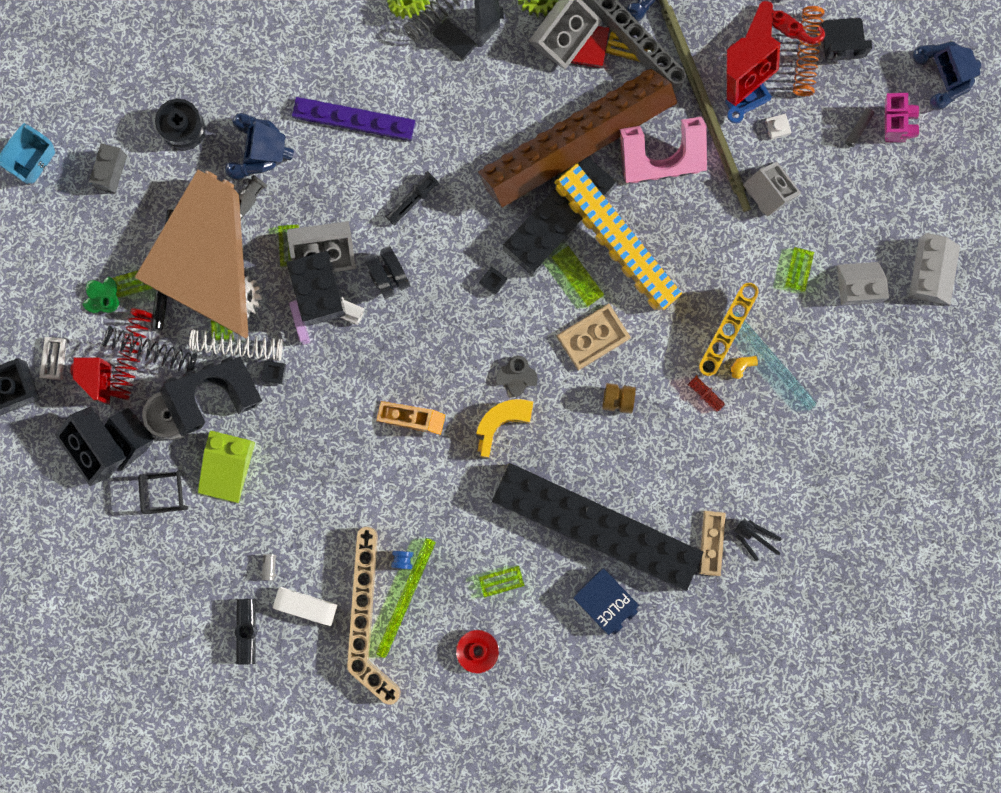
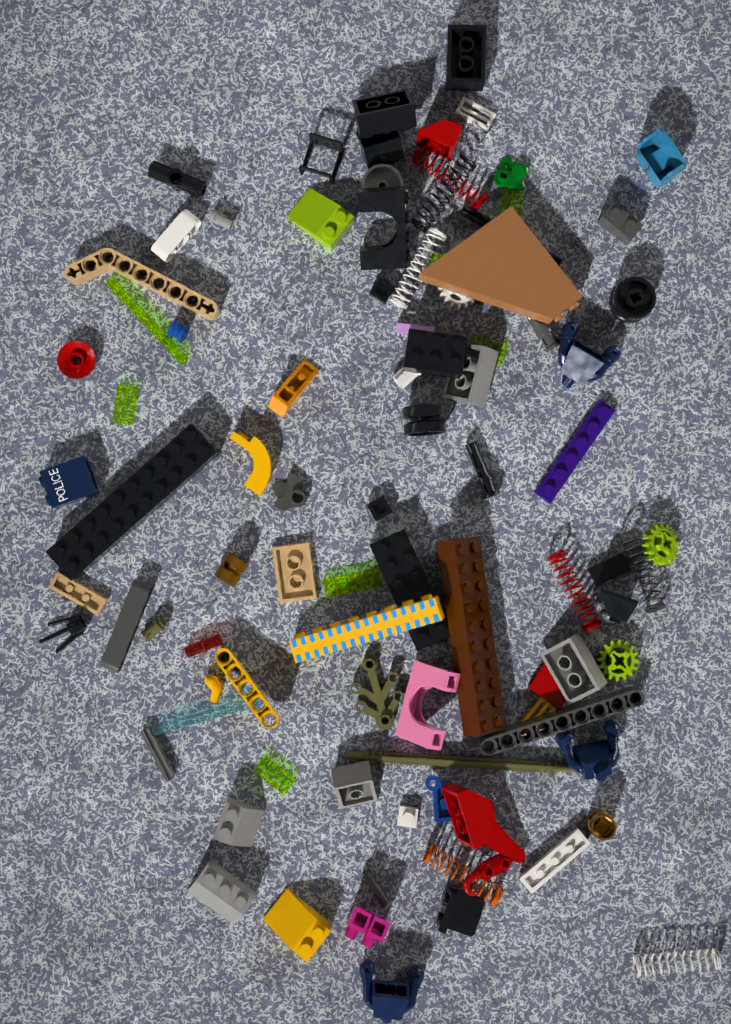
camera: 115 degrees right, 5 degrees up
(468, 91) = (592, 623): none -> red piece
(676, 203) = (378, 696): none -> olive plant
(712, 450) = (152, 630): none -> olive pin
(722, 478) = (126, 625): none -> dark grey beam
(832, 392) = (157, 754): none -> dark grey axle
(930, 184) = (298, 924): none -> yellow slope

